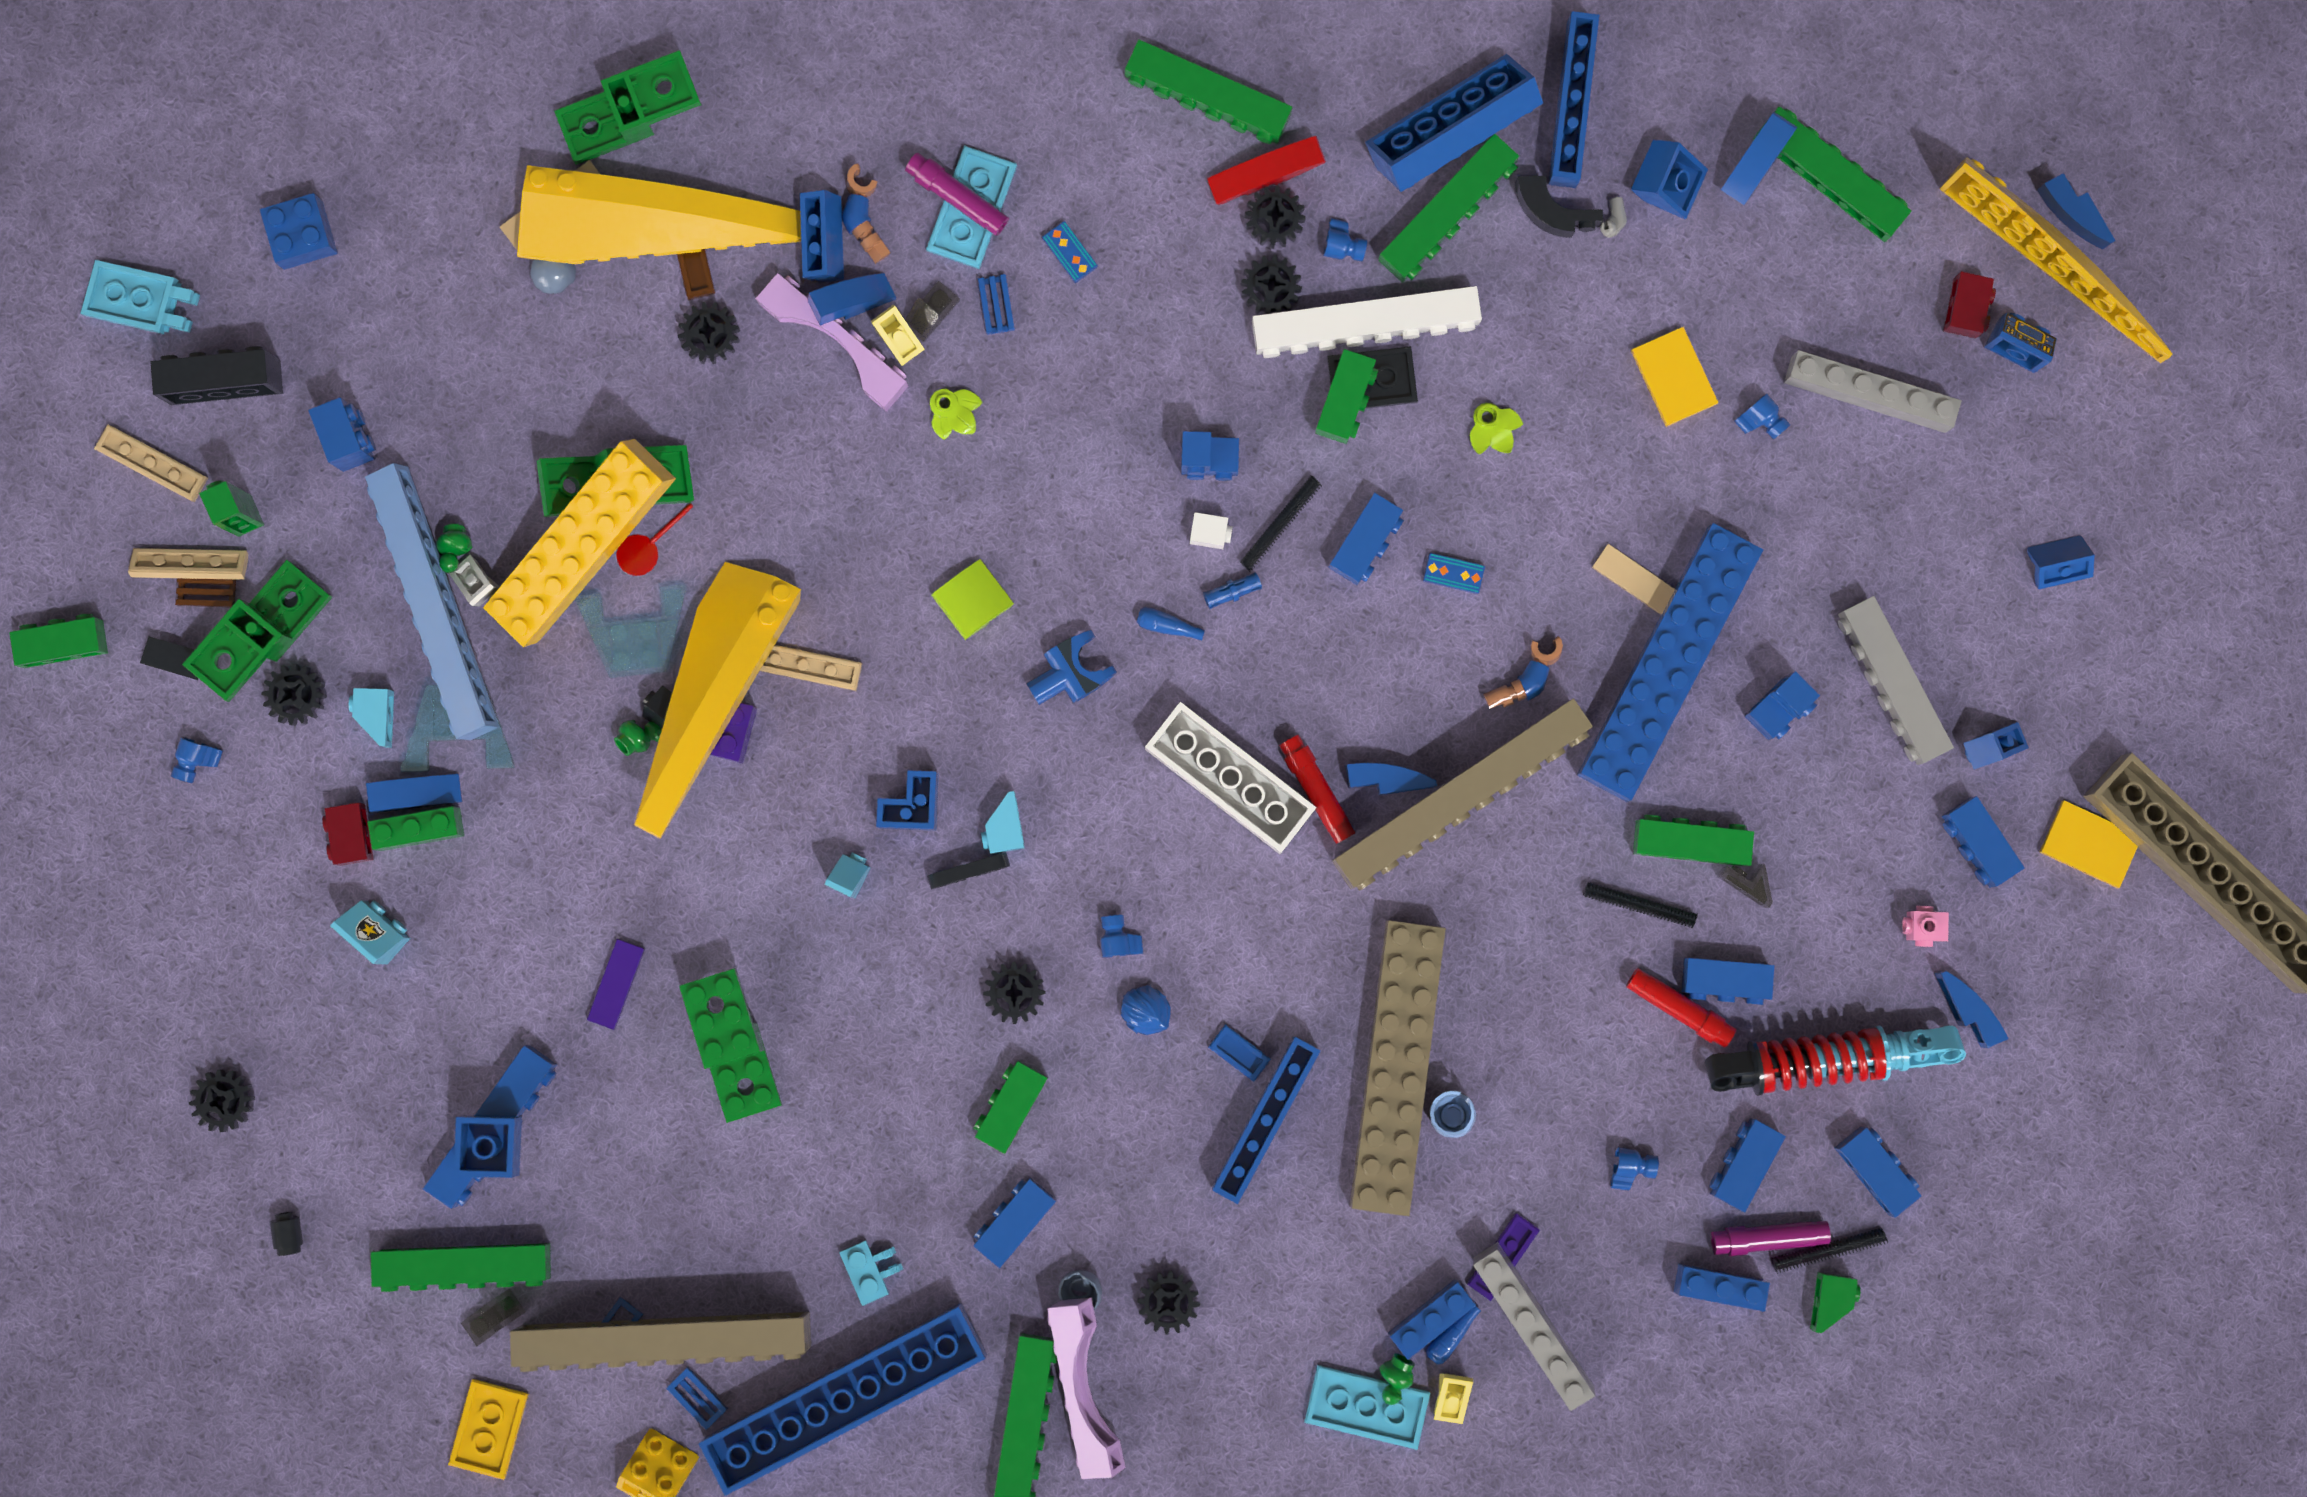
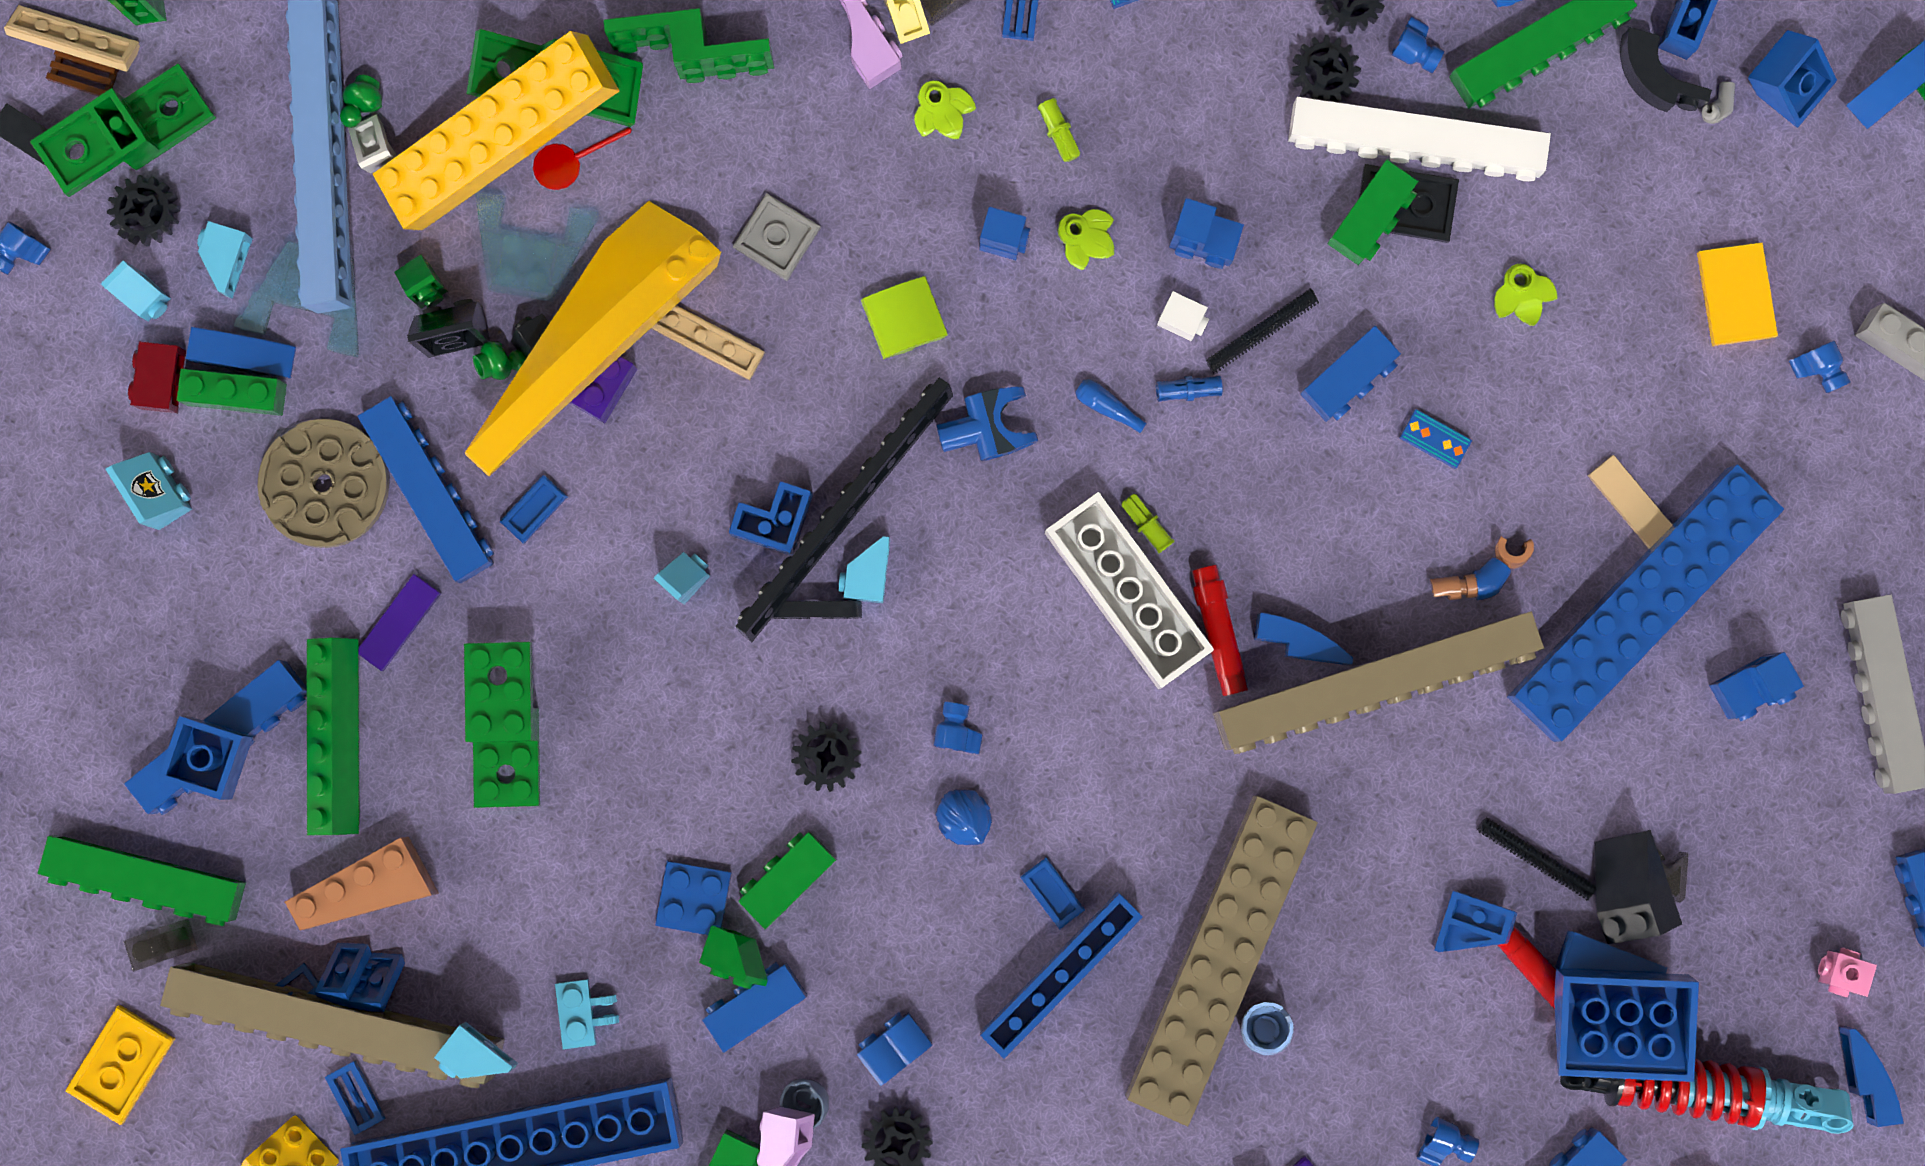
camera: 15 degrees right, 0 degrees up
(310, 766) = (136, 291): none -> medium azure slope
(487, 879) = (290, 477): none -> dark tan plate
(551, 688) = (421, 283): none -> green slope
(587, 721) = (449, 329): none -> black slope
(588, 1097) = (332, 736): none -> green brick
(607, 864) = (426, 489): none -> blue brick
(660, 1211) = (371, 884): none -> nougat wedge
(672, 1294) = (360, 977): none -> blue slope
(703, 854) = (533, 509): none -> blue tile
(722, 419) = (689, 44): none -> green bracket
(788, 1330) = (472, 1055): none -> medium azure slope
(843, 561) = (776, 237): none -> light grey tile
(936, 1146) = (692, 898): none -> blue plate
(965, 787) = (836, 518): none -> black plate
(984, 1184) = (735, 956): none -> green slope
(1037, 504) = (1004, 234): none -> blue piece
(1058, 401) = (1059, 130): none -> lime axle
(1112, 486) = (1091, 238): none -> lime plate
(1142, 1223) = (893, 1048): none -> blue brick
(1229, 715) = (1147, 523): none -> lime axle
(1602, 975) = (1474, 924): none -> blue wing
(1693, 842) = (1614, 806): green brick -> none
(1726, 907) = (1632, 889): none -> black slope
(1751, 1023) = (1626, 1024): none -> blue slope

